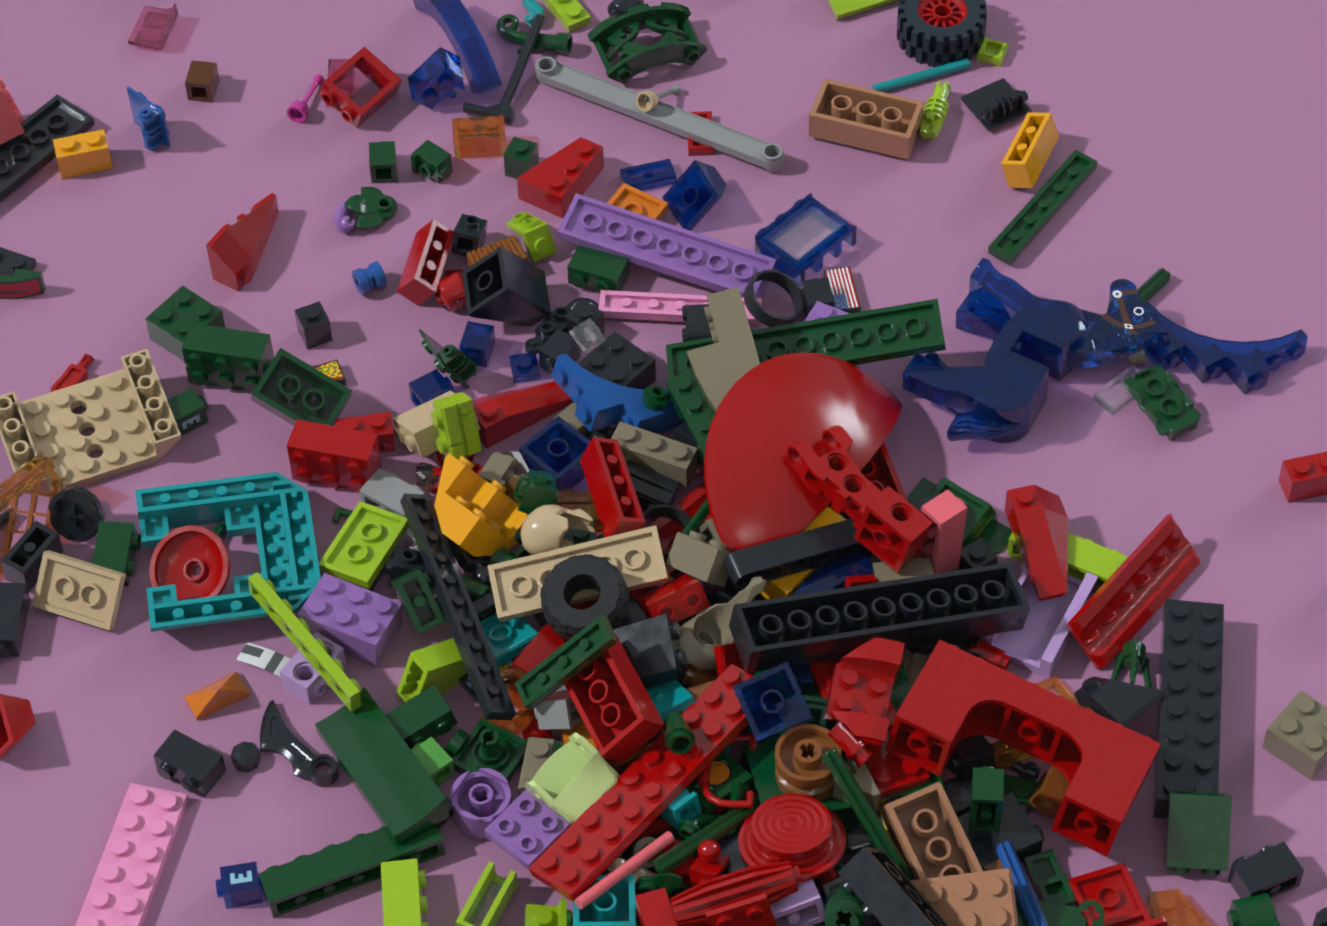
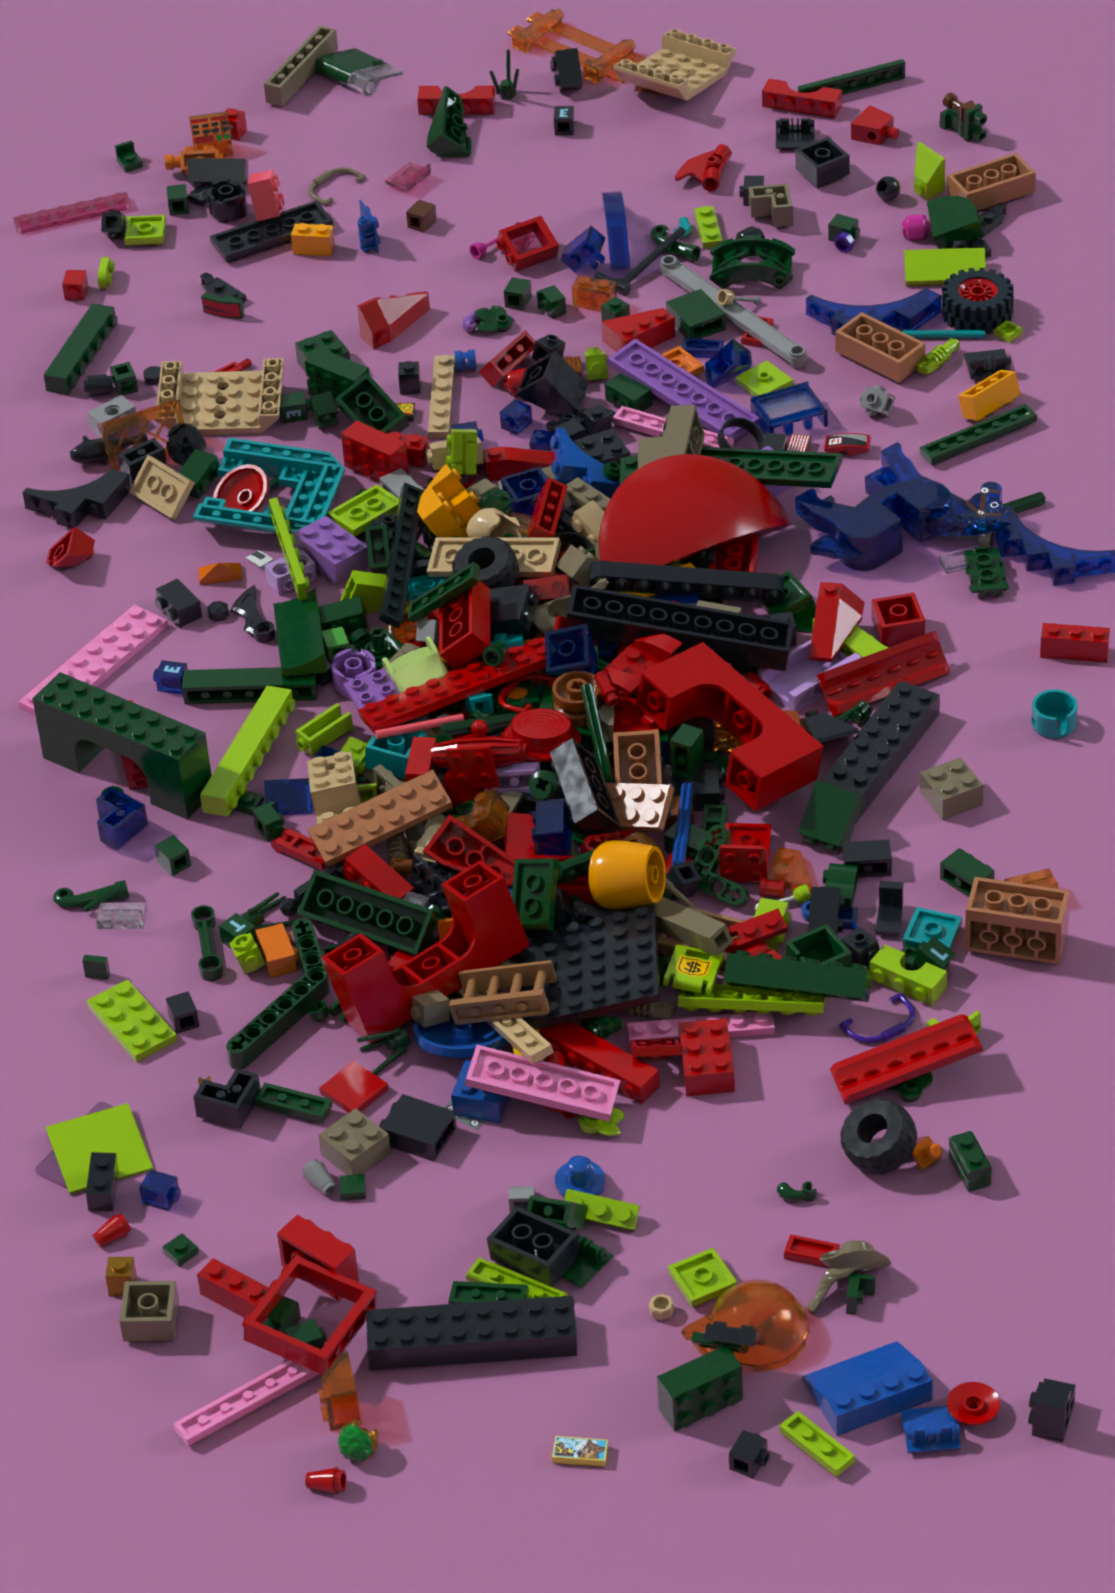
camera: 25 degrees right, 10 degrees down
(45, 55) = (326, 175): none -> dark tan piece
(230, 407) = (324, 410): none -> dark green brick
(364, 339) = (441, 396): none -> tan plate
(450, 360) = (488, 418): dark green hinge -> none
(587, 335) = (590, 424): clear plate -> none
(621, 132) = (696, 315): none -> dark green brick
(676, 485) = (588, 521): none -> tan brick
(748, 202) = (763, 379): none -> lime plate
(799, 88) = (903, 314): none -> clear blue arch
(882, 518) = (712, 565): red brick -> none
(903, 262) = (852, 442): none -> slope
(912, 192) = (877, 400): none -> light grey brick
(946, 533) = (754, 587): coral brick -> none
(1107, 506) = (897, 619): none -> red brick

